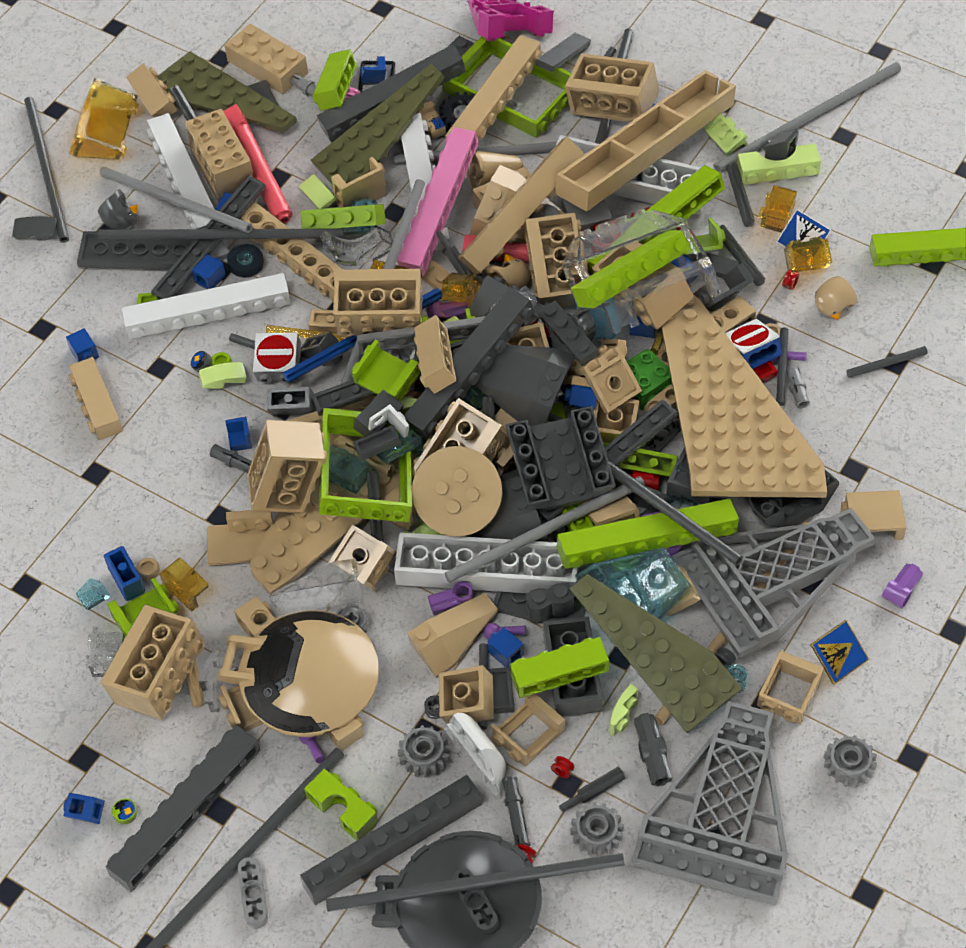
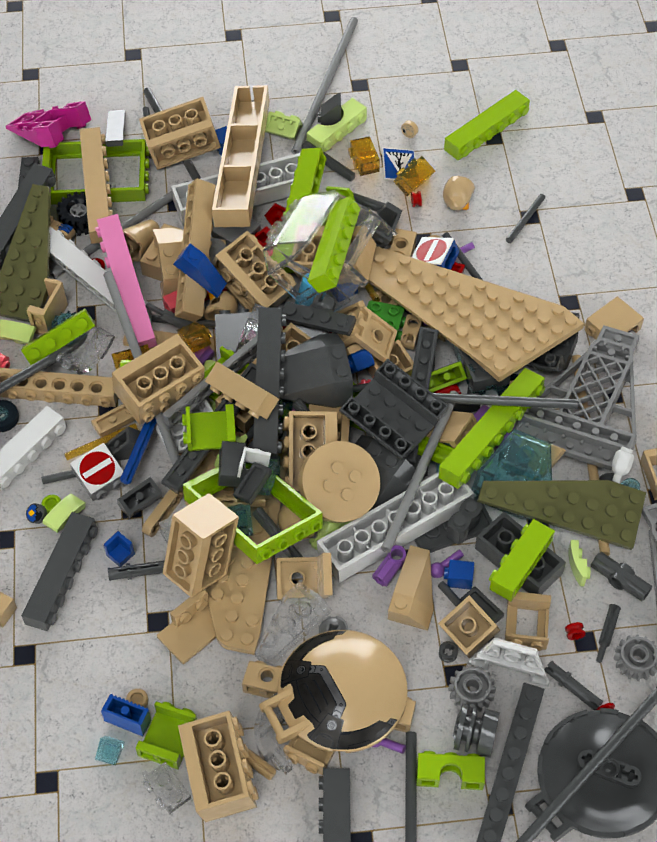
camera: 40 degrees left, 0 degrees up
(177, 421) = (59, 572): none -> dark grey brick
(183, 583) = (180, 690): clear yellow panel -> none
(389, 785) = (476, 730): none -> dark grey wheel
(505, 227) = (200, 269): none -> blue slope
(741, 645) = (622, 463): none -> white plant
(797, 387) = (494, 275): light grey pin -> none
(849, 206) = (409, 129): none -> tan tile

